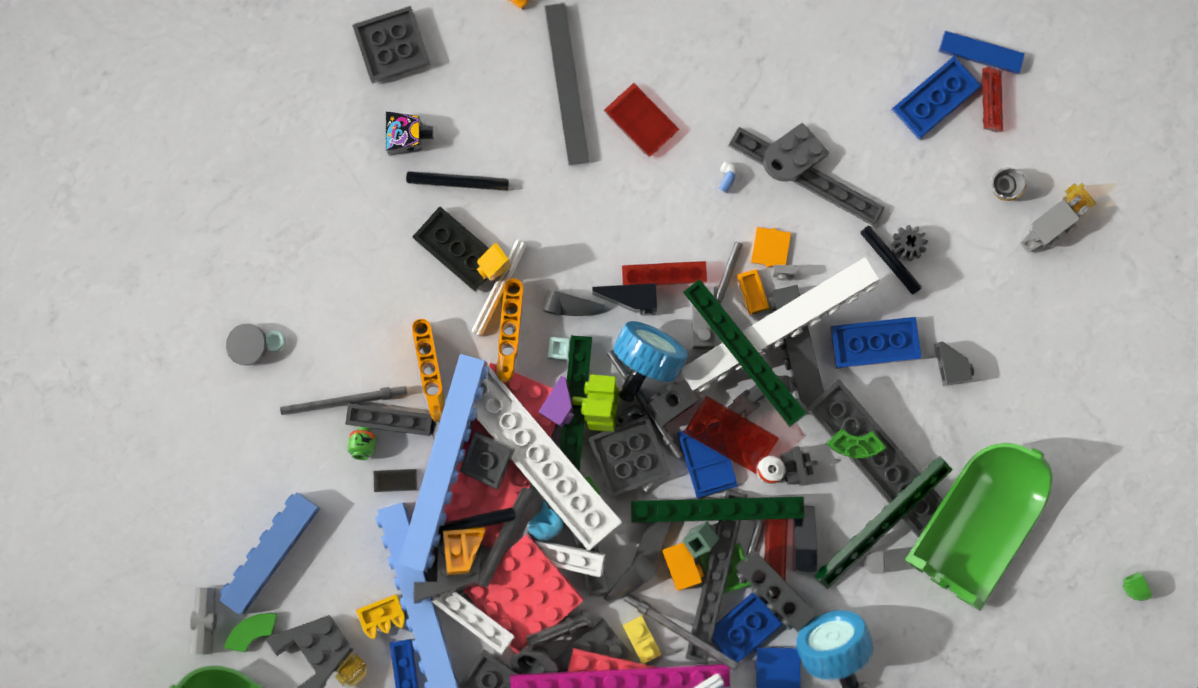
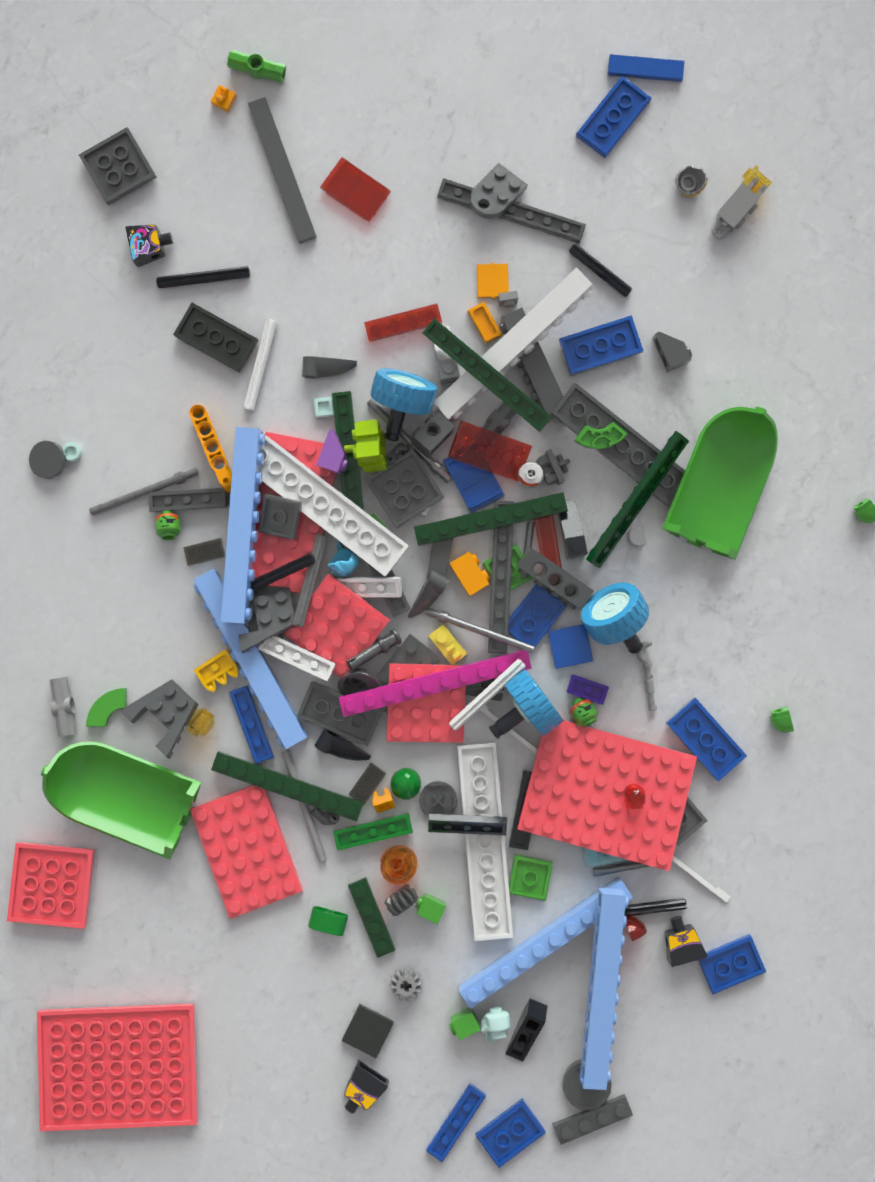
camera: 10 degrees left, 5 degrees up
(269, 553) = (107, 637): medium blue brick -> none
(461, 549) = (274, 598): light orange wing -> none
(493, 263) = (249, 341): yellow slope -> none
(507, 362) = (278, 428): light orange piece -> none
(634, 297) = (380, 348): black slope -> none
(700, 539) = (481, 547): sand green brick -> none
(728, 271) = (459, 308): flat silver bar -> none
(729, 178) = (443, 226): medium blue arm -> none
(911, 250) = (614, 258): dark grey gear -> none
(992, 99) = (663, 108): clear red plate -> none

